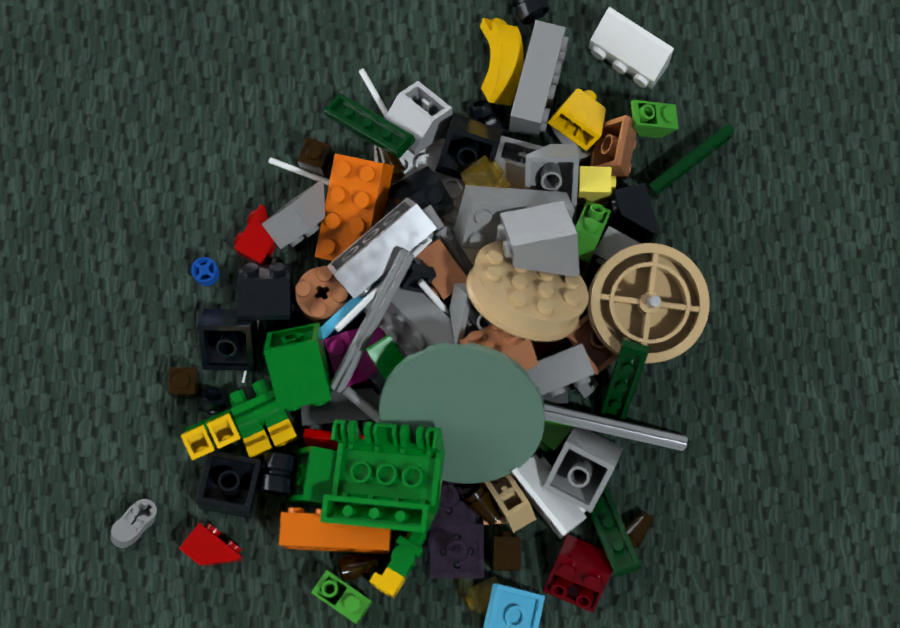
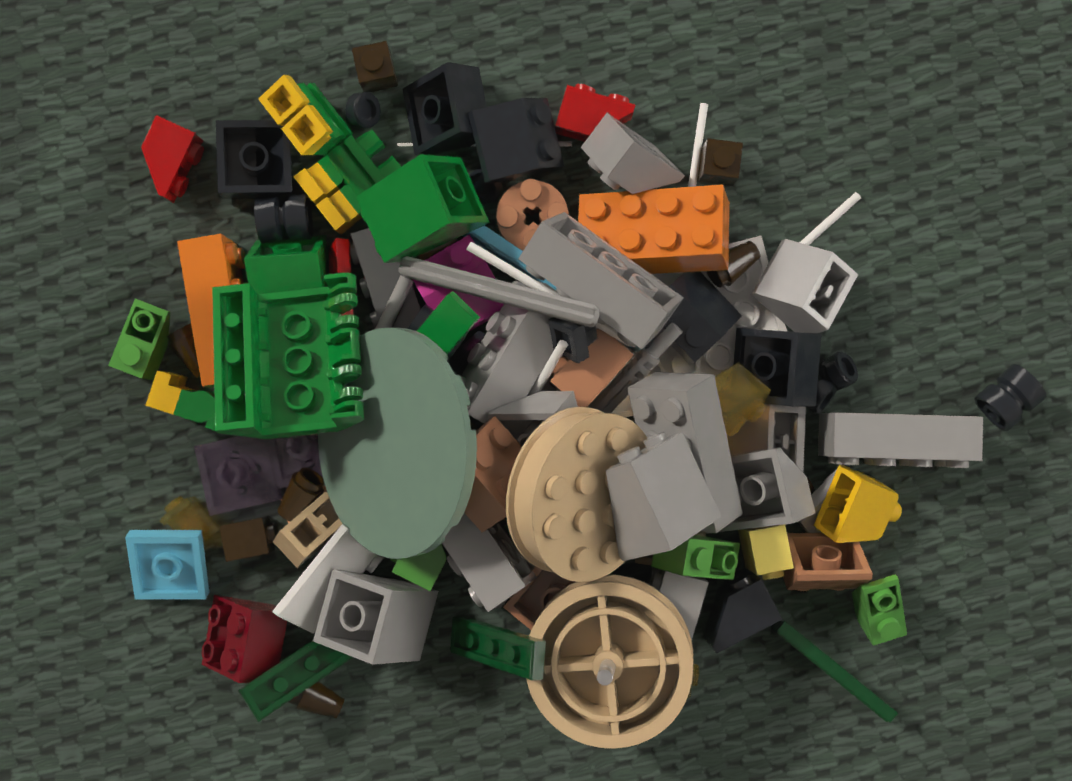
camera: 70 degrees right, 10 degrees up
(125, 532) = (195, 61): light grey piece -> none
(201, 267) = (532, 49): blue wheel -> none
(369, 125) = (778, 224): dark green tile -> none
(505, 61) = (914, 388): yellow arch -> none
(615, 427) = (441, 644): light grey axle -> none
(630, 49) = (974, 555): white slope -> none

